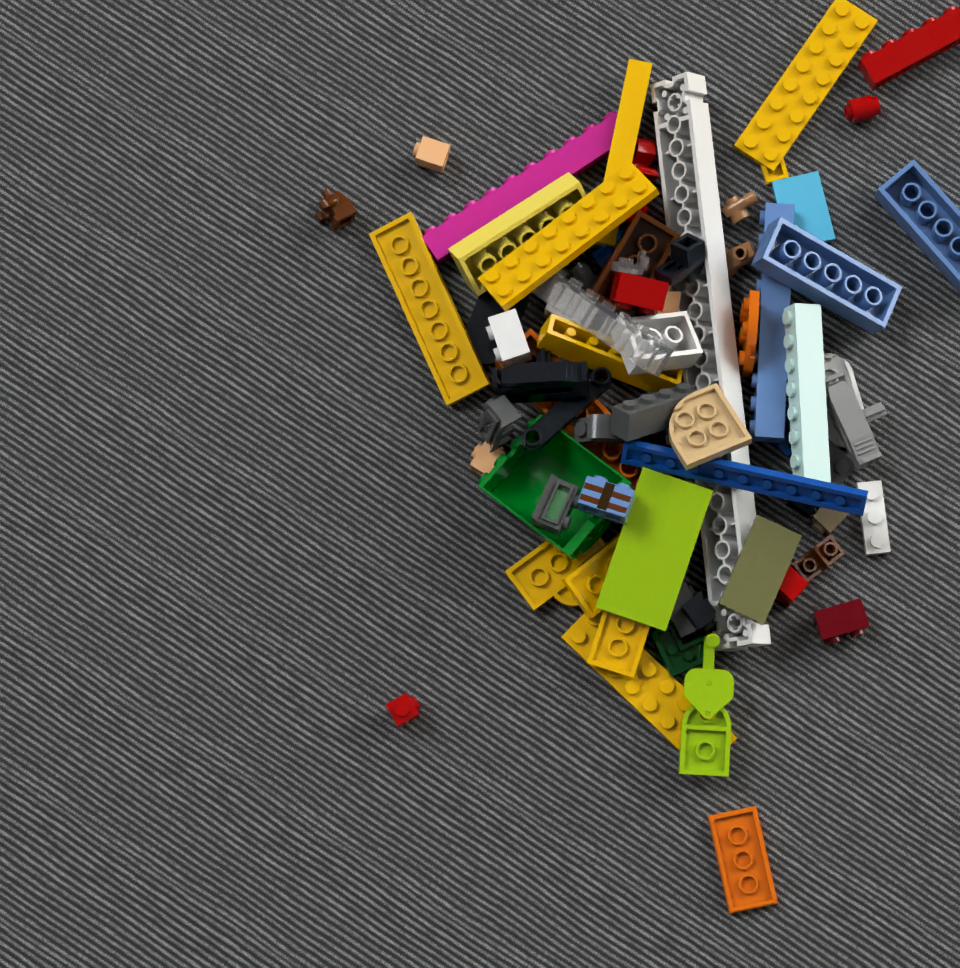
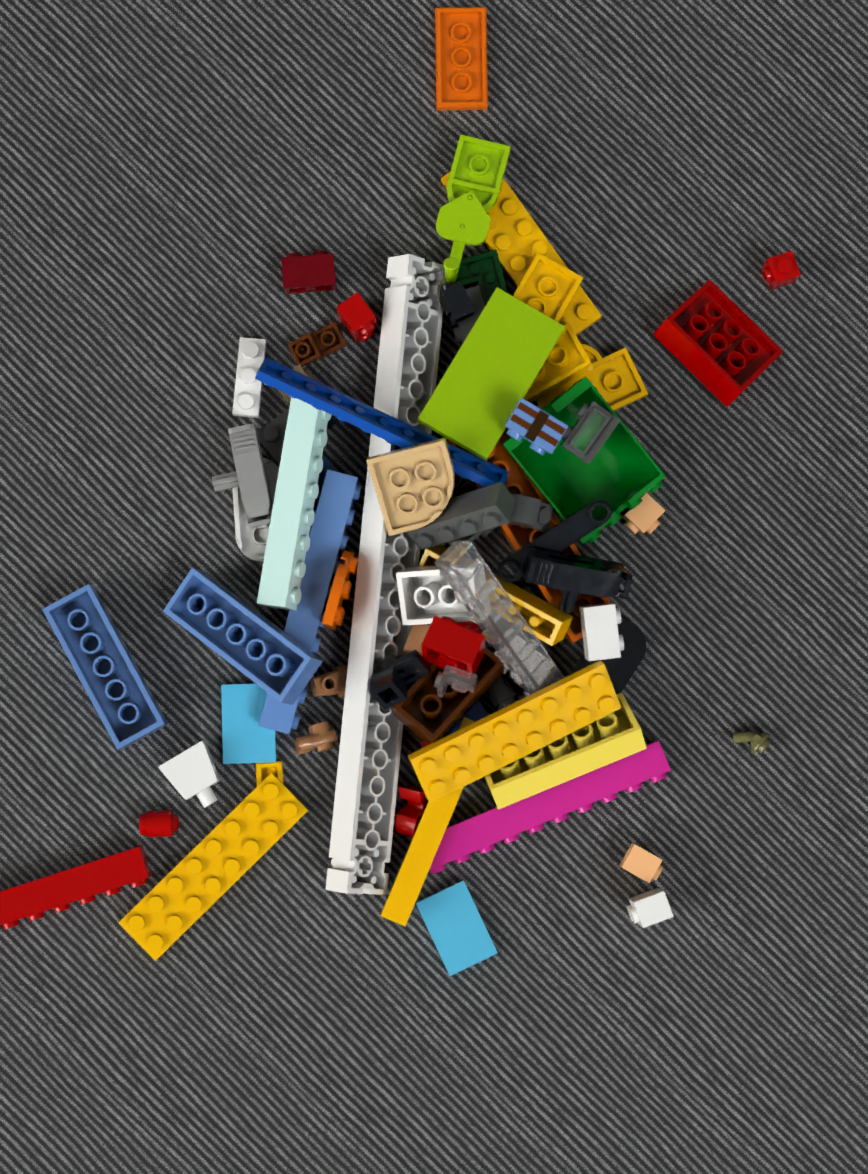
camera: 170 degrees left, 5 degrees up
(336, 208) = (756, 823): reddish brown piece -> none
(347, 279) = (758, 742): none -> olive plate
(418, 116) = (649, 908): none -> white brick
(429, 309) = (675, 691): yellow plate -> none
(448, 632) = (717, 343): none -> red slope
(497, 421) = (630, 544): dark grey window -> none
(582, 72) = (456, 928): none -> medium azure tile
(759, 570) = (386, 327): olive tile -> none
(842, 156) = (193, 773): none -> white torso

